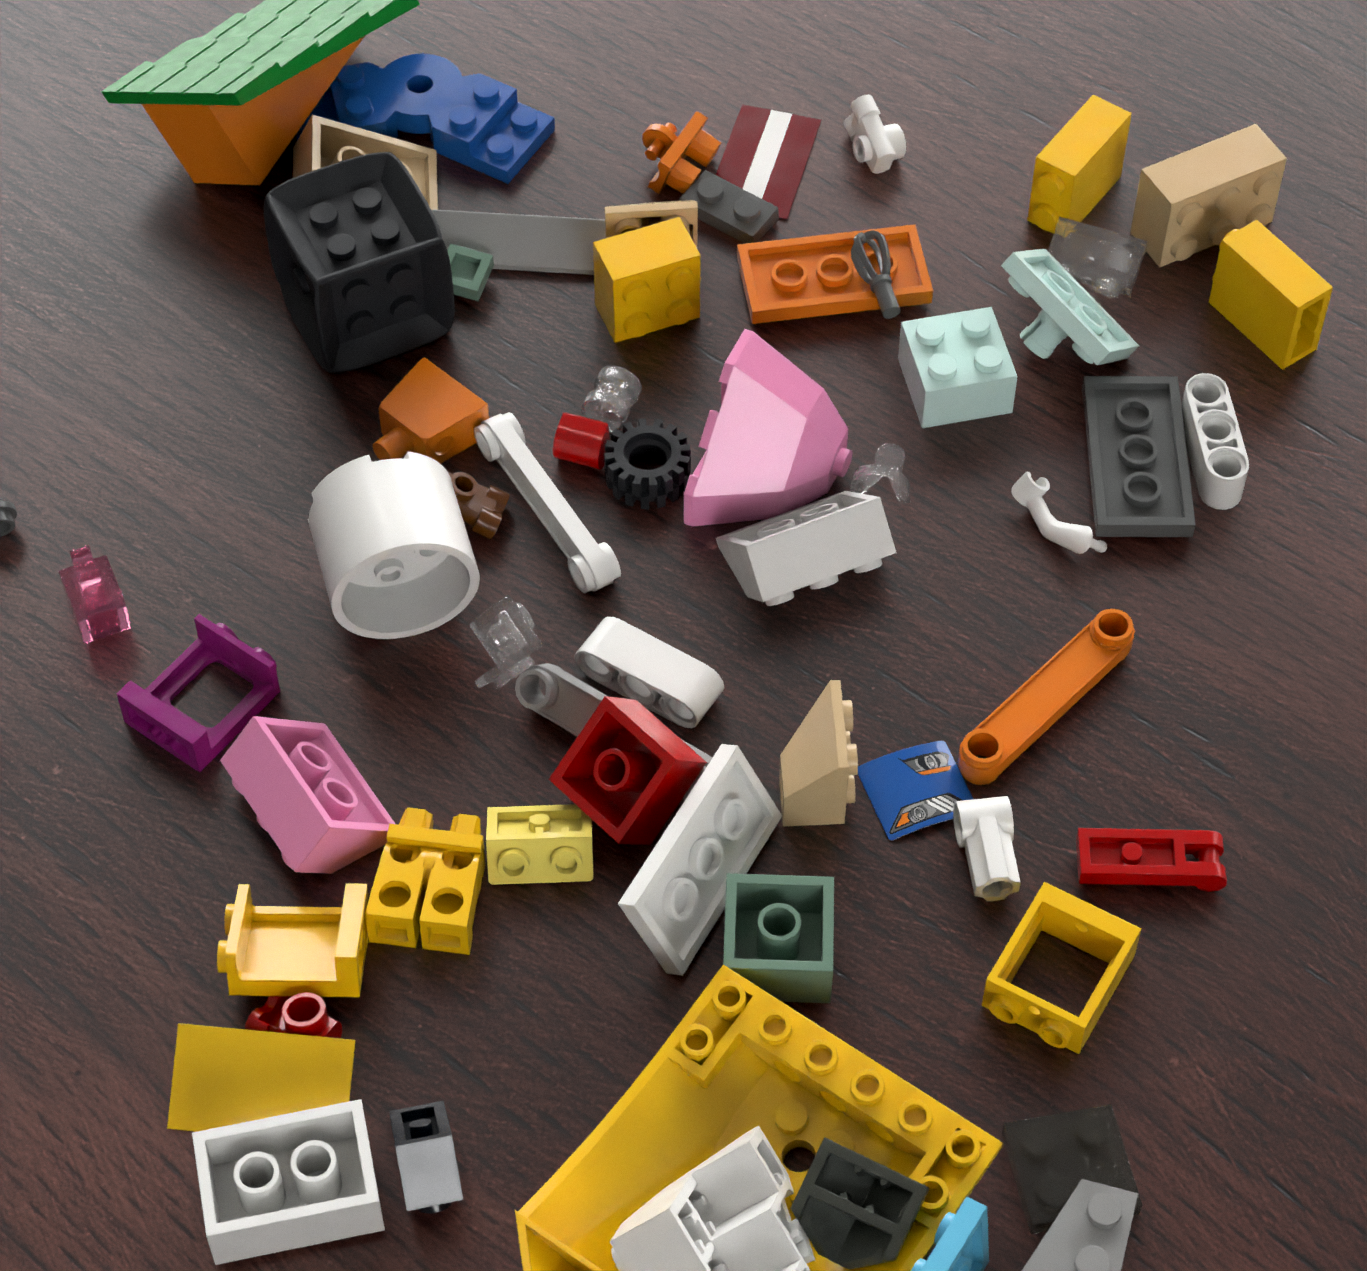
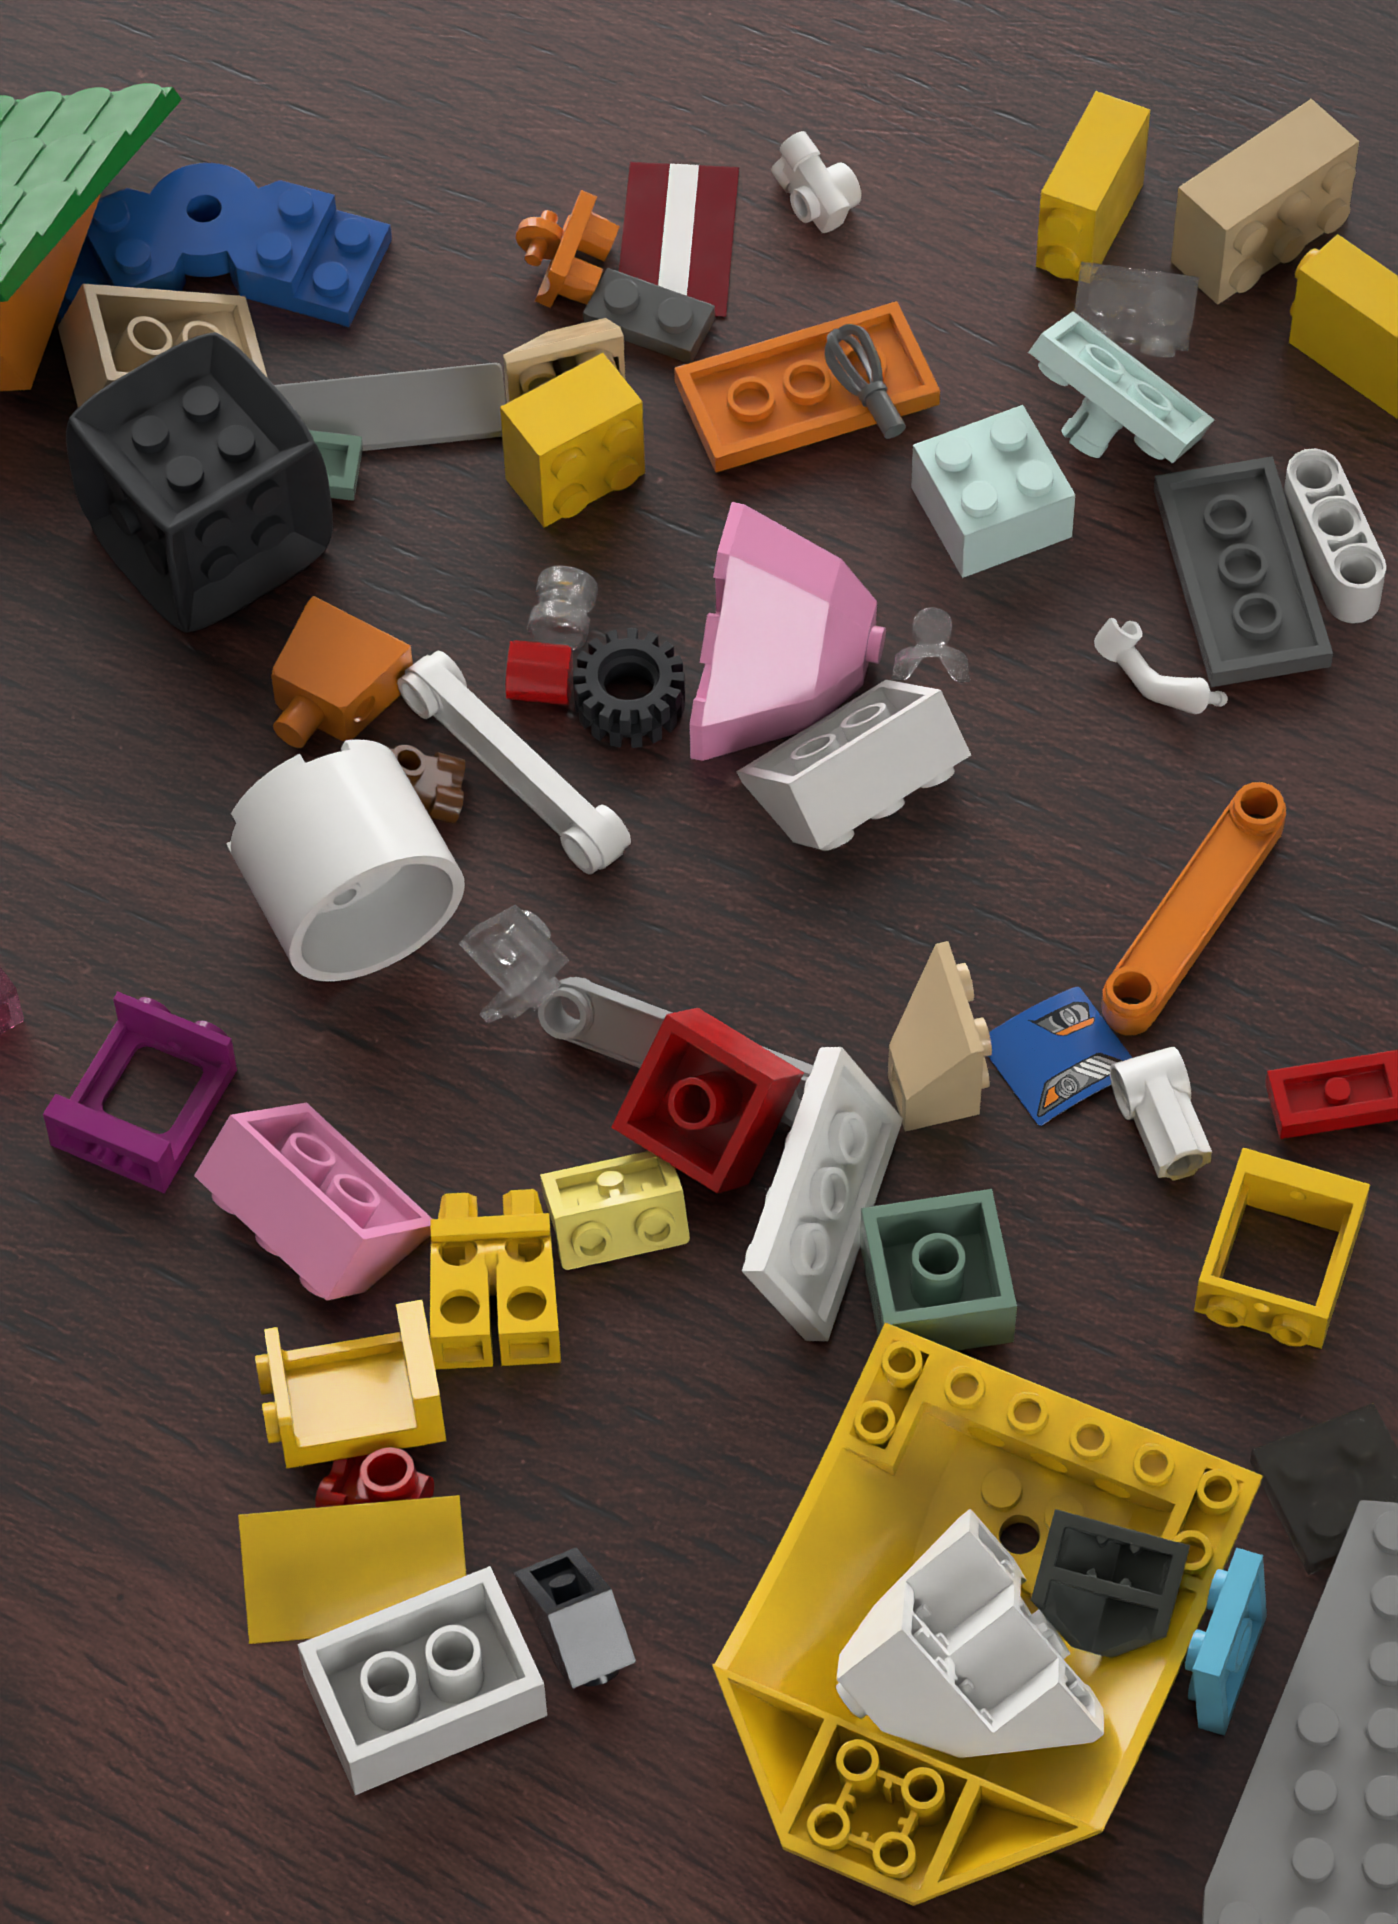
camera: 10 degrees left, 5 degrees up
(649, 672) = (698, 964): white beam -> none

